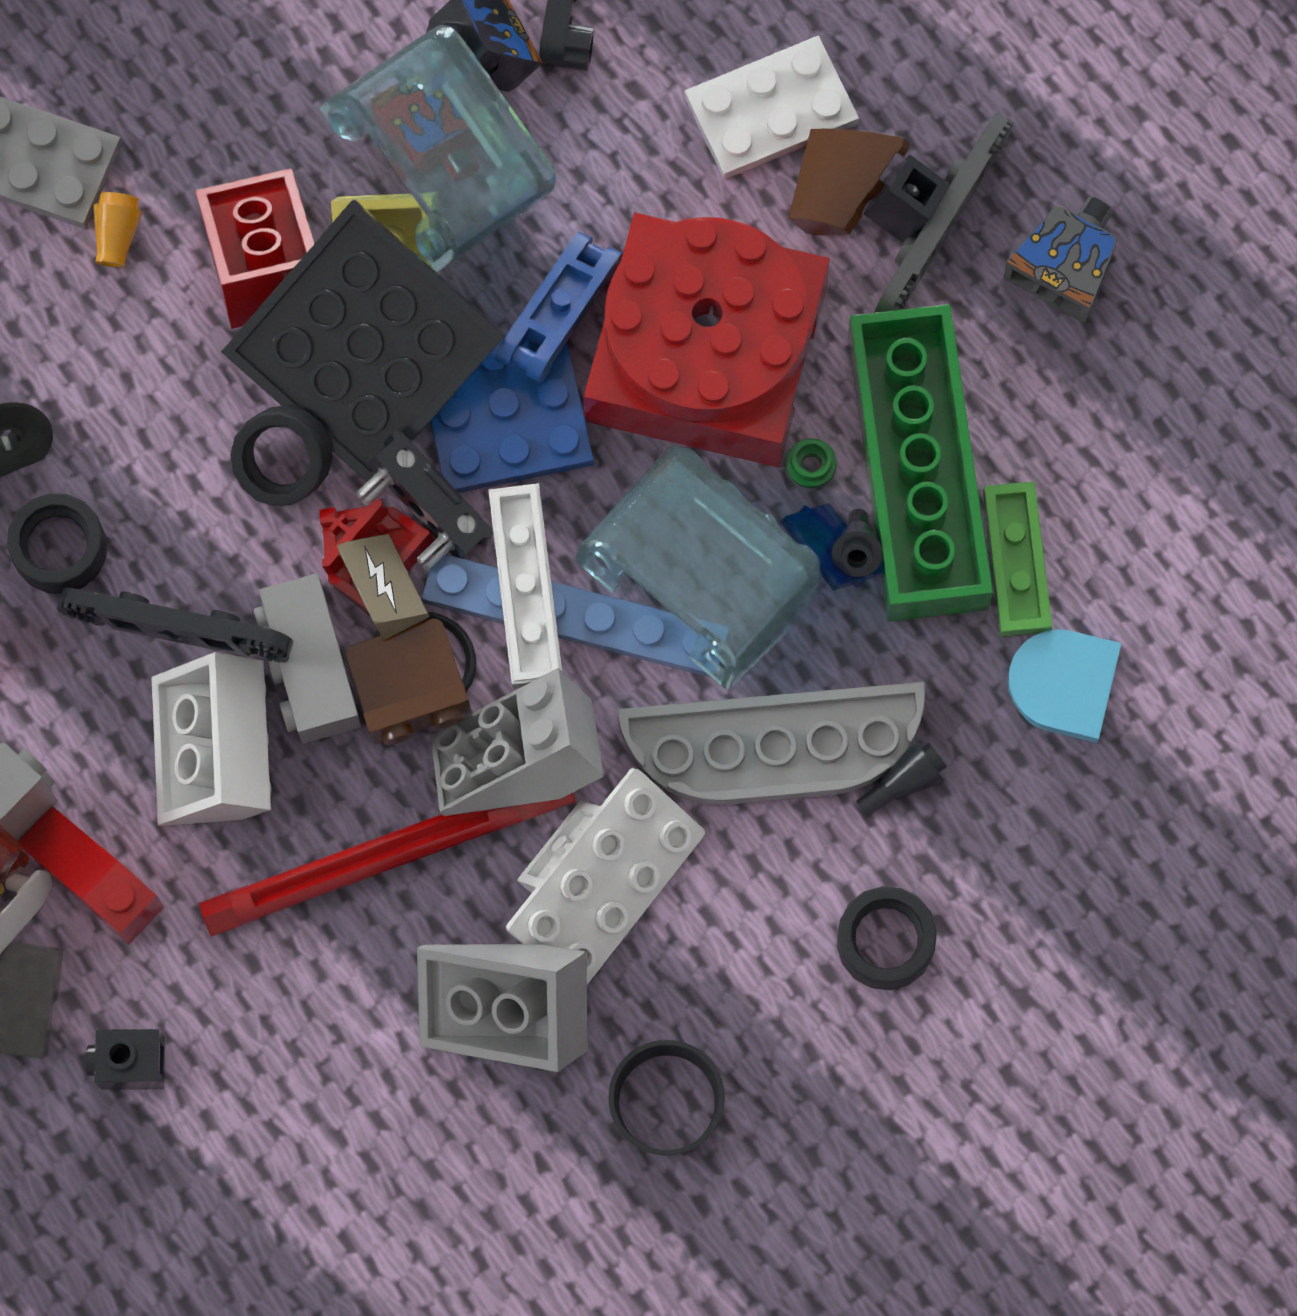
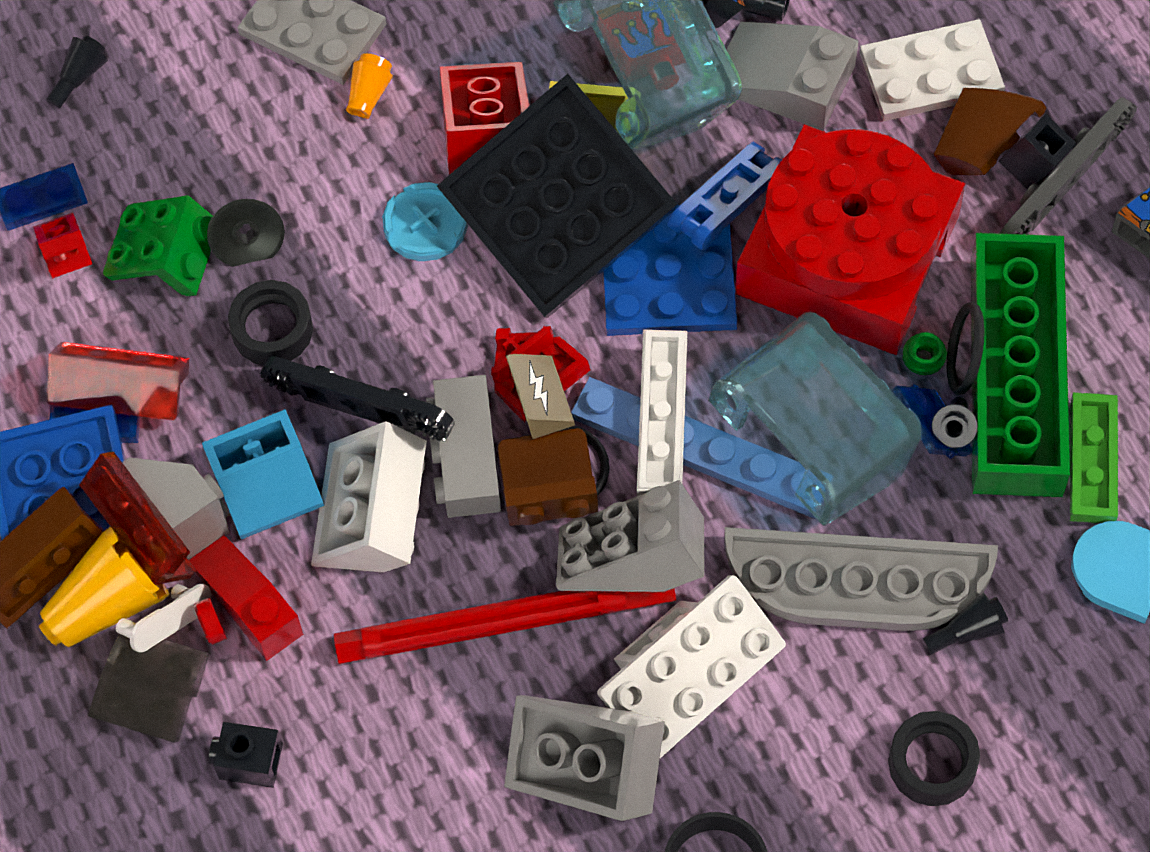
camera: 10 degrees right, 10 degrees down
(56, 912) = (210, 621): none -> red tile
(84, 731) = (263, 474): none -> dark azure slope
(209, 391) = (423, 223): none -> medium azure tile
(259, 485) = (440, 278): black tyre -> none
(427, 497) = (590, 329): black piece -> none
(607, 132) = (793, 69): none -> light grey slope
(870, 455) = (977, 350): none -> black tyre

